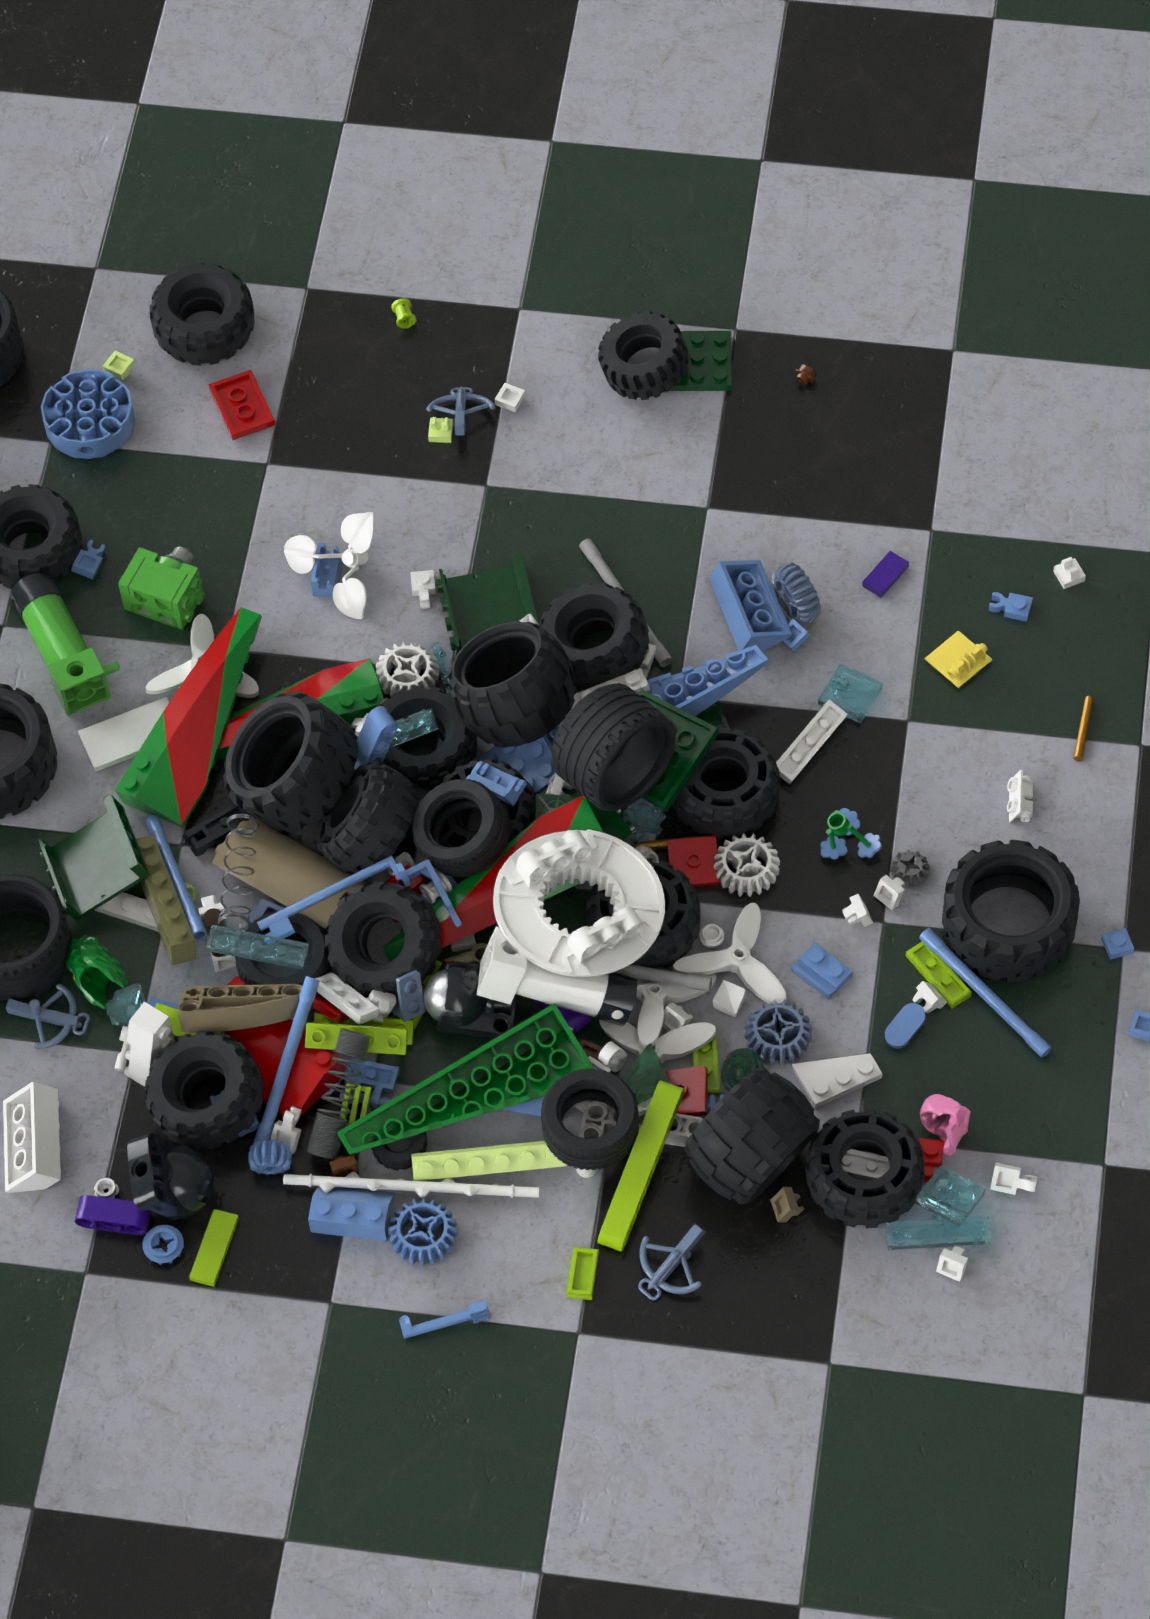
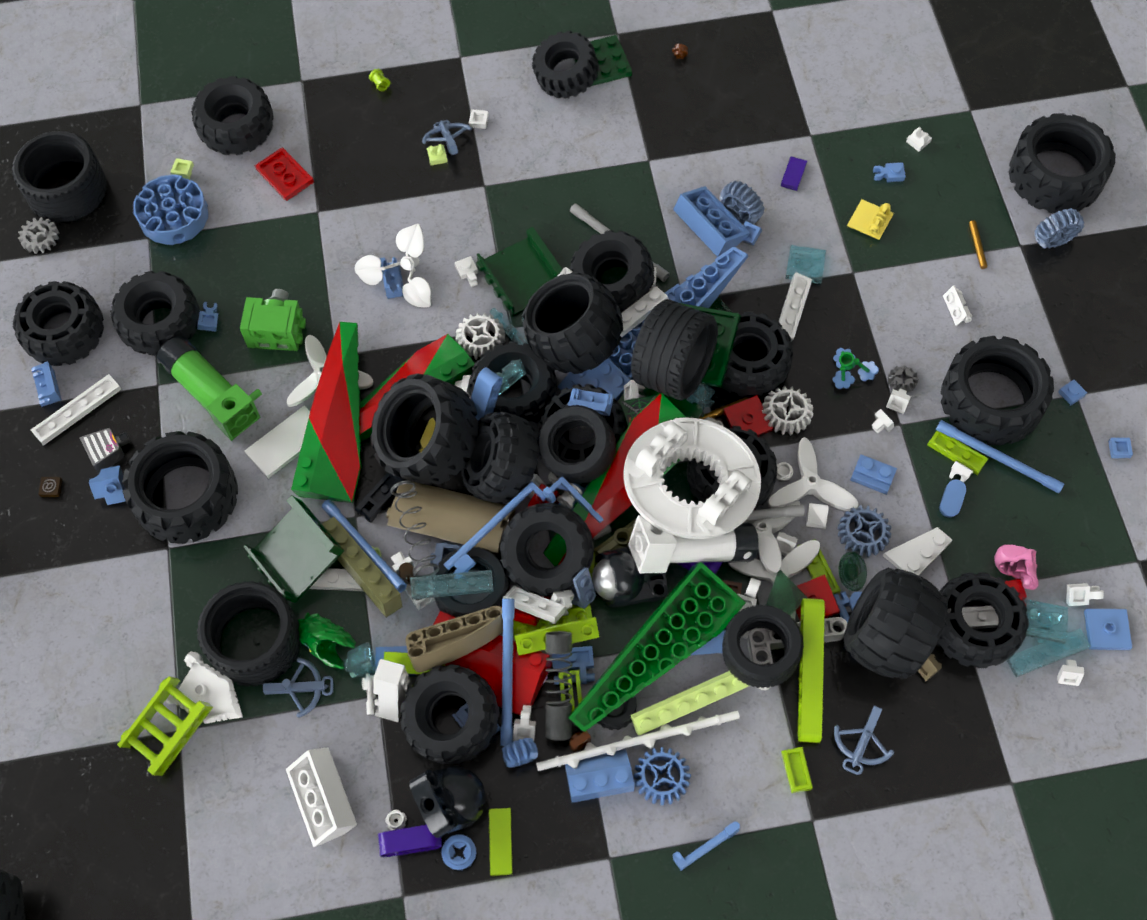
camera: 20 degrees left, 5 degrees up
(1025, 1229) = (1108, 629): none -> medium blue plate

